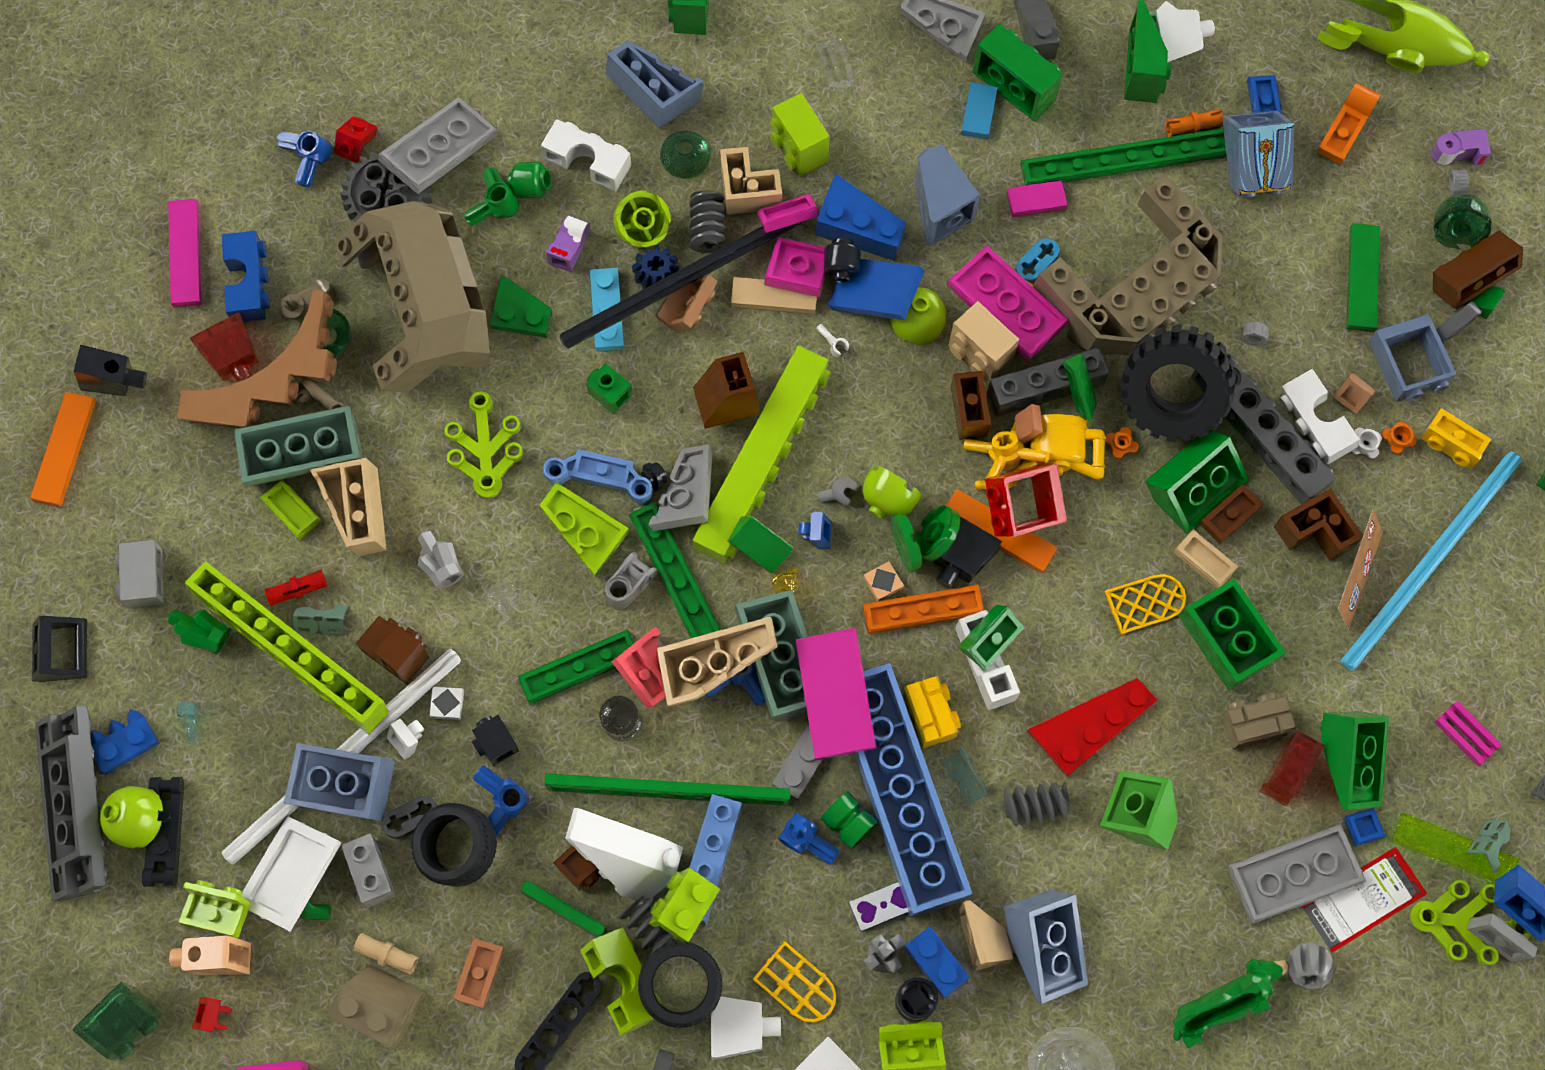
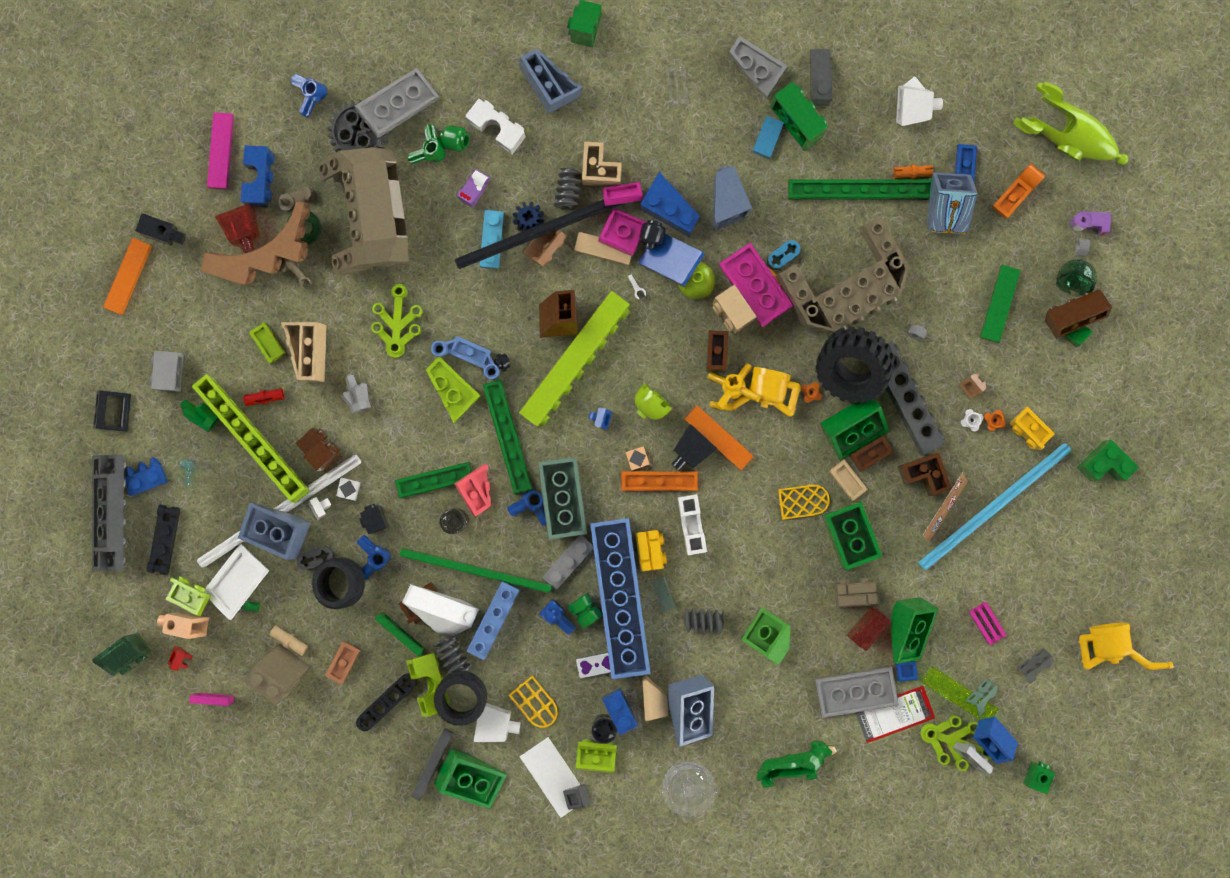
camera: 20 degrees right, 15 degrees up
(131, 816) = (143, 529): lime cylinder -> none
(296, 445) = (276, 303): sand green brick -> none
(337, 612) = (286, 418): sand green piece -> none
(353, 137) = (342, 86): red bracket -> none
(368, 870) = (284, 588): light grey brick -> none
(519, 311) = (434, 230): green wing -> none
(608, 388) = (483, 296): green brick -> none
(632, 577) = (475, 429): light grey piece -> none
(641, 219) = (523, 183): lime cylinder -> none
(684, 904) = (471, 649): lime bracket -> none
(688, 492) = (522, 378): light grey wing -> none
(689, 164) = (566, 144): clear green piece -> none
(706, 661) = (512, 498): tan wedge -> none
(759, 543) = (561, 421): green slope -> none
(786, 581) = (574, 448): clear yellow piece -> none
(799, 135) = (641, 138): lime brick -> none
(835, 694) = (590, 533): dark pink tile -> none
(839, 491) = (621, 393): light grey piece -> none
(884, 954) = (590, 696): light grey rock -> none
(906, 546) = (655, 437): green tile -> none
(938, 532) = (677, 435): green tile -> none
(991, 636) = (696, 513): green slope -> none
(1028, 423) = (752, 371): nougat tile -> none
(1036, 198) = (793, 209): dark pink tile -> none
(1041, 383) = (771, 343): dark grey brick -> none
(1049, 509) = (754, 425): red window -> none
(1081, 386) = (792, 353): green slope -> none
(1089, 726) = (745, 577): red wing -> none
(1146, 59) = (890, 120): green slope -> none
(1310, 966) = (850, 752): light grey piece -> none
(1329, 439) = (947, 415): white arch -> none
(1433, 347) = (1034, 368): sand blue window -> none
(1458, 322) = (1054, 348): dark grey beam -> none

